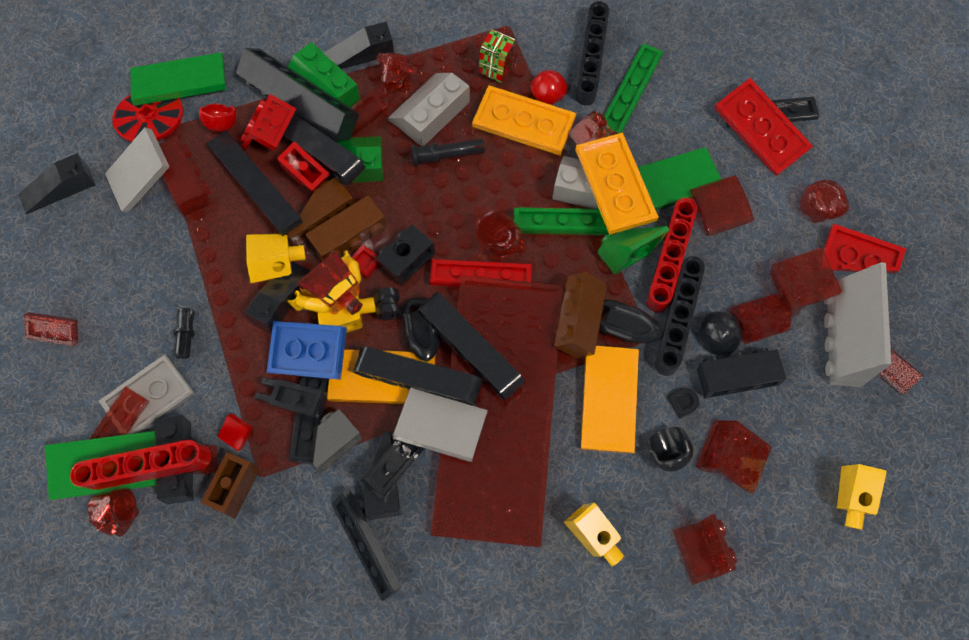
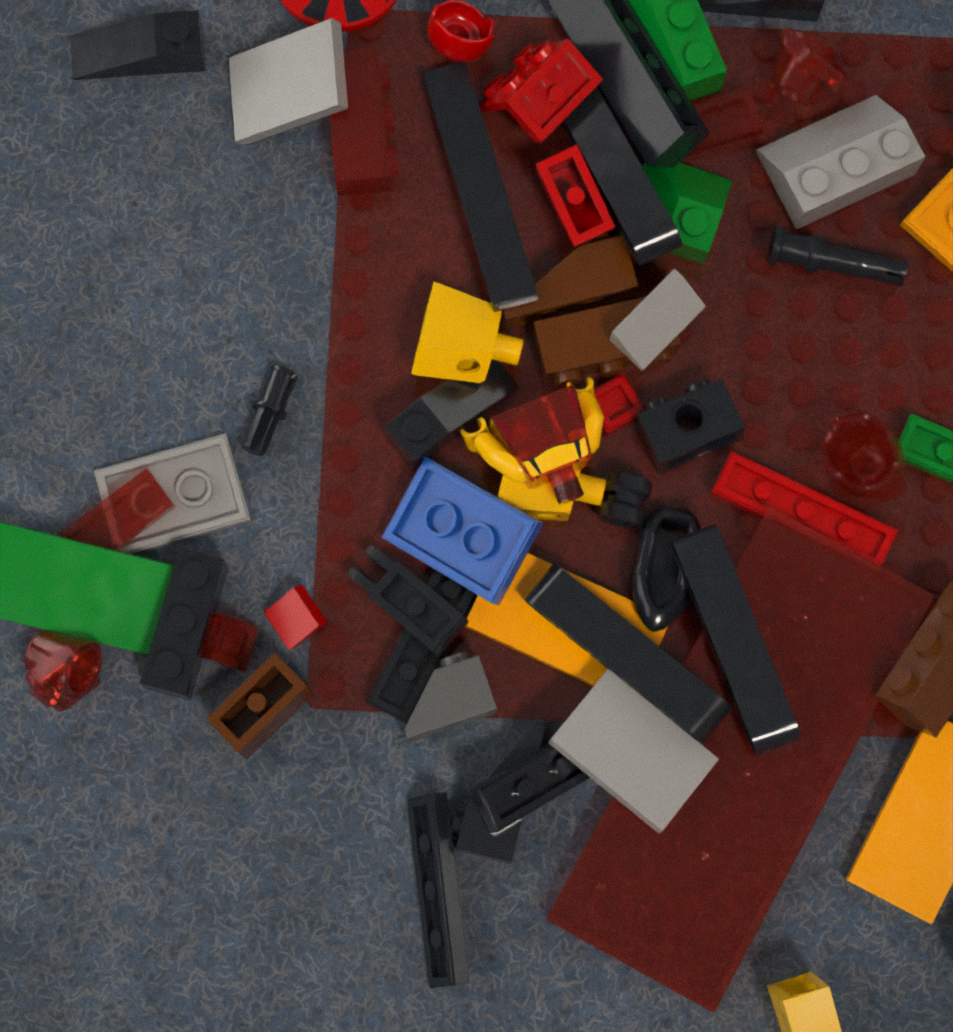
camera: 20 degrees right, 10 degrees up
(50, 329) = (55, 314): clear red plate -> none
(129, 462) = (116, 612): red beam -> none
(367, 208) = (657, 320): none -> light grey slope

